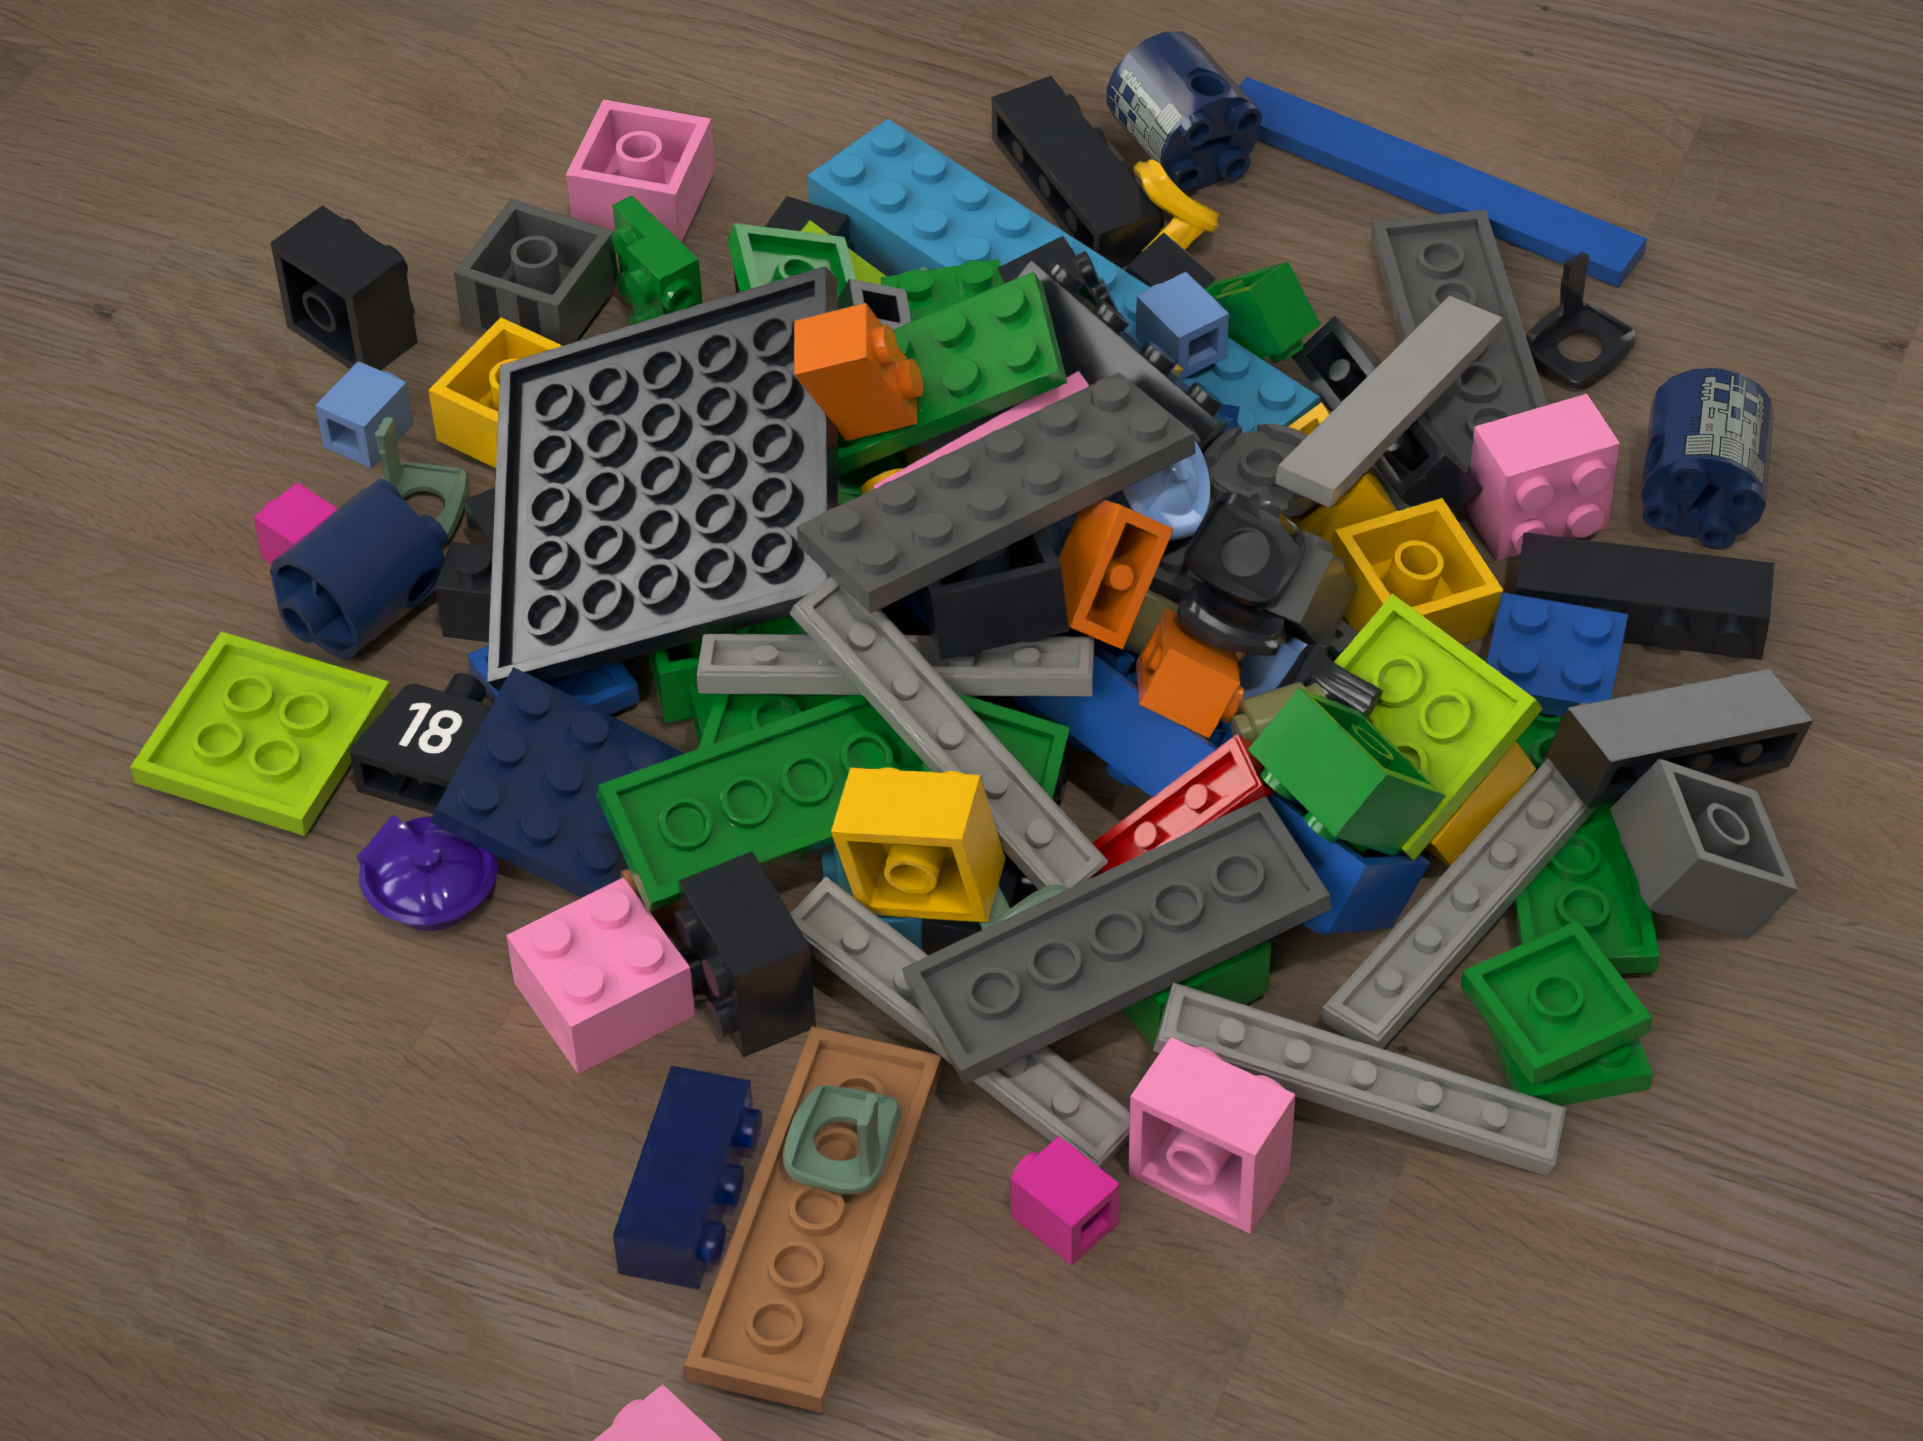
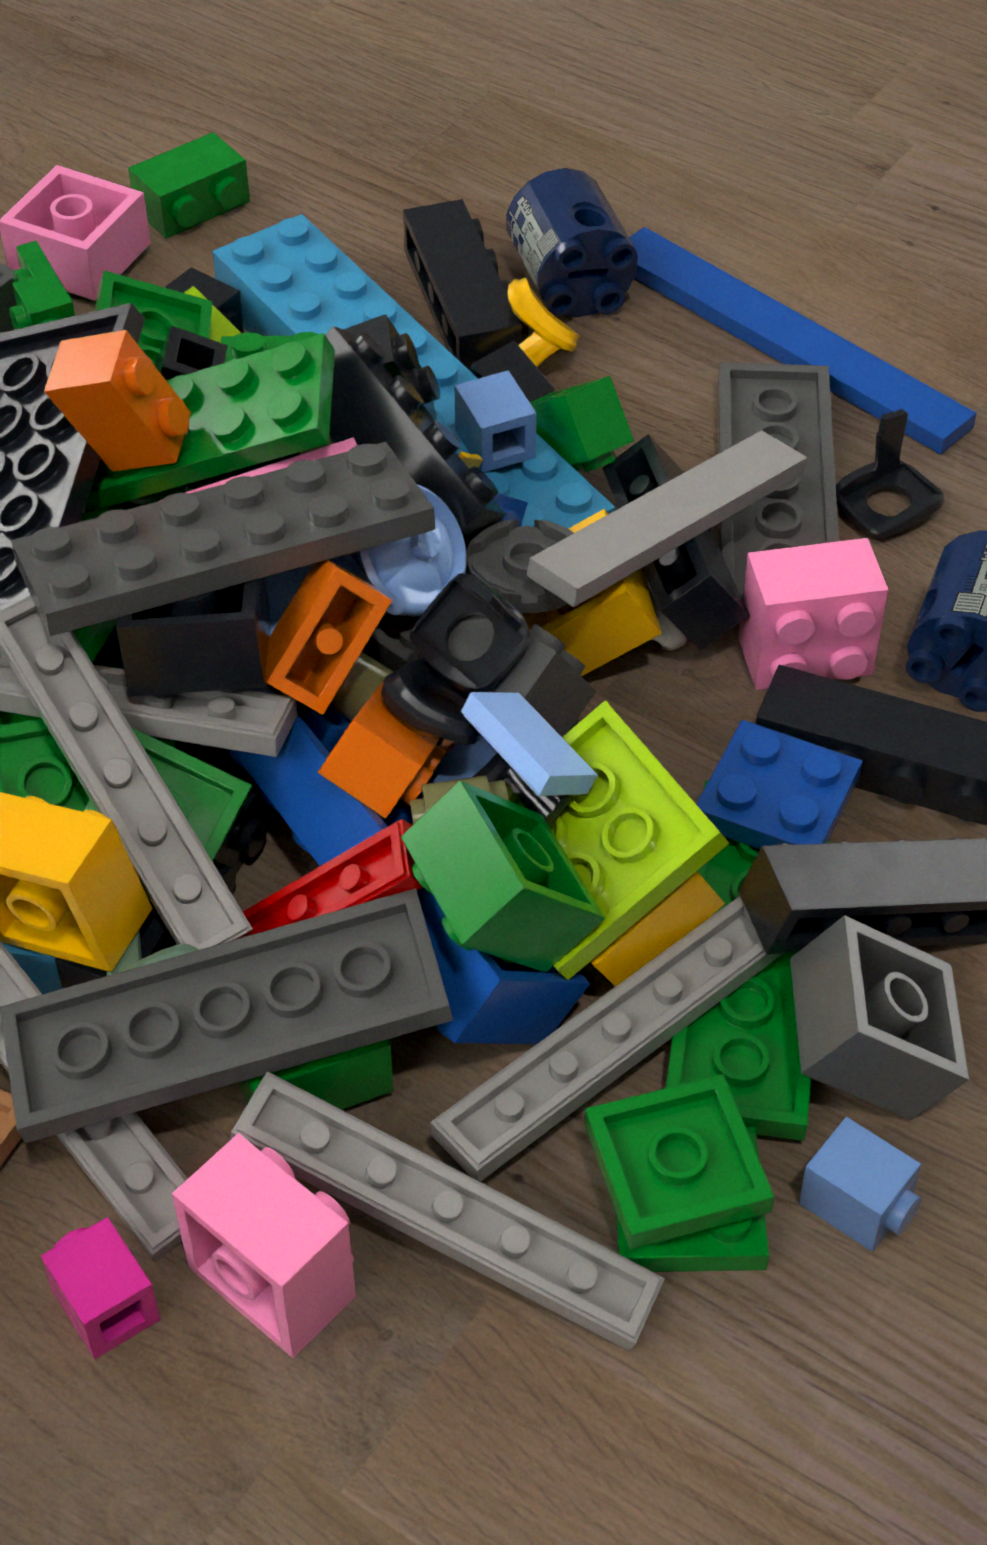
camera: 10 degrees right, 0 degrees up
(742, 93) = (191, 184): none -> green brick
(1332, 645) = (528, 744): none -> light blue tile
(1425, 563) = (664, 688): yellow brick -> none
(1720, 999) = (861, 1185): none -> medium blue brick

